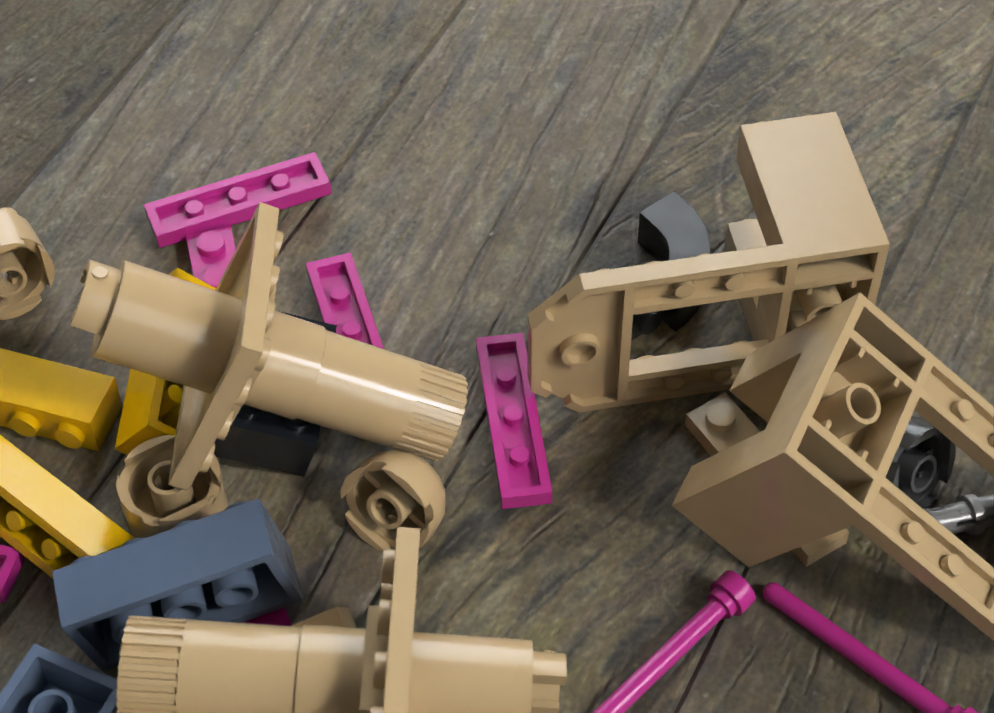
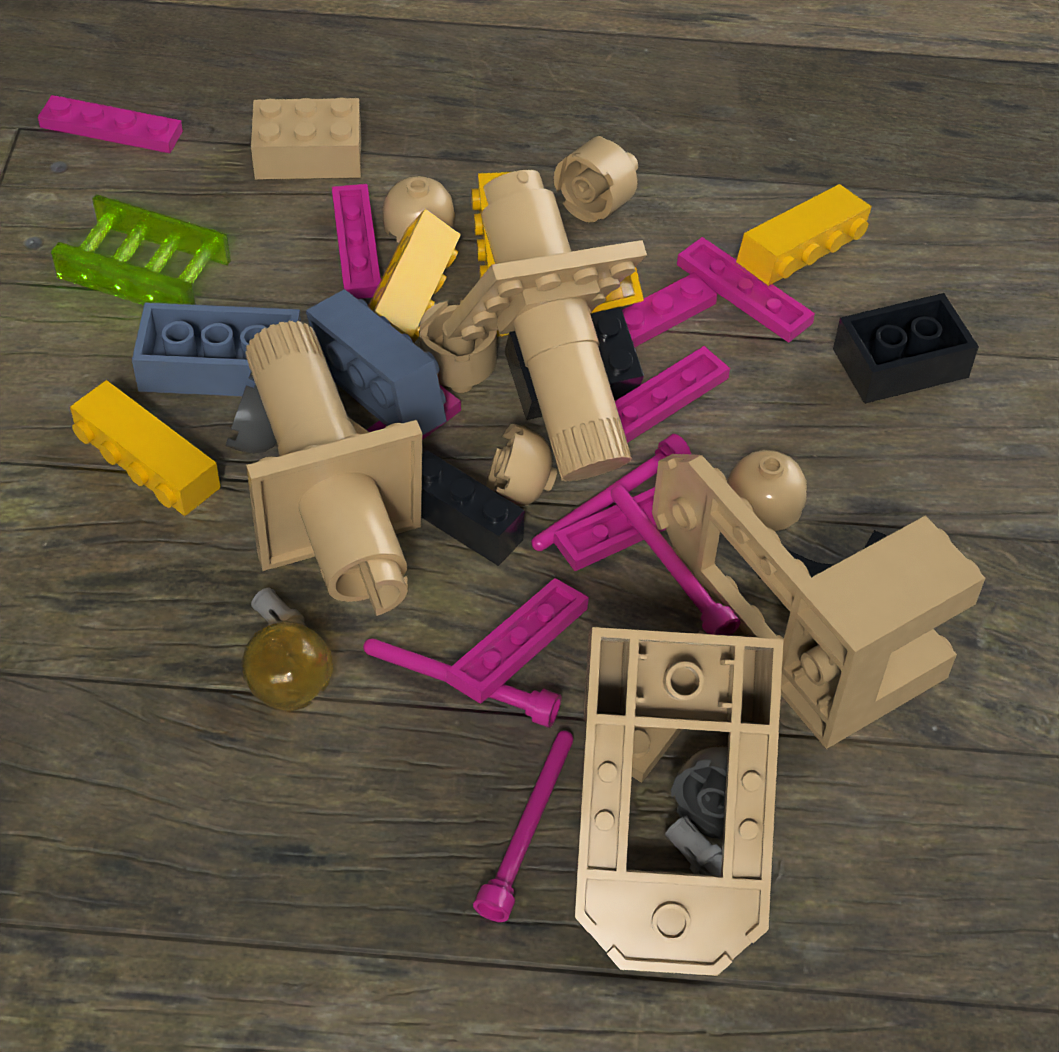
camera: 65 degrees right, 0 degrees up
(206, 115) = (803, 234): none -> yellow brick
(409, 97) = (905, 347): none -> black brick
(438, 349) = (671, 445): none -> dark pink piece
(452, 566) = (469, 510): none -> black brick
(520, 281) = (771, 486): none -> tan cylinder
(642, 586) = (516, 640): none -> dark pink plate
(691, 389) = (715, 617): none -> dark pink piece

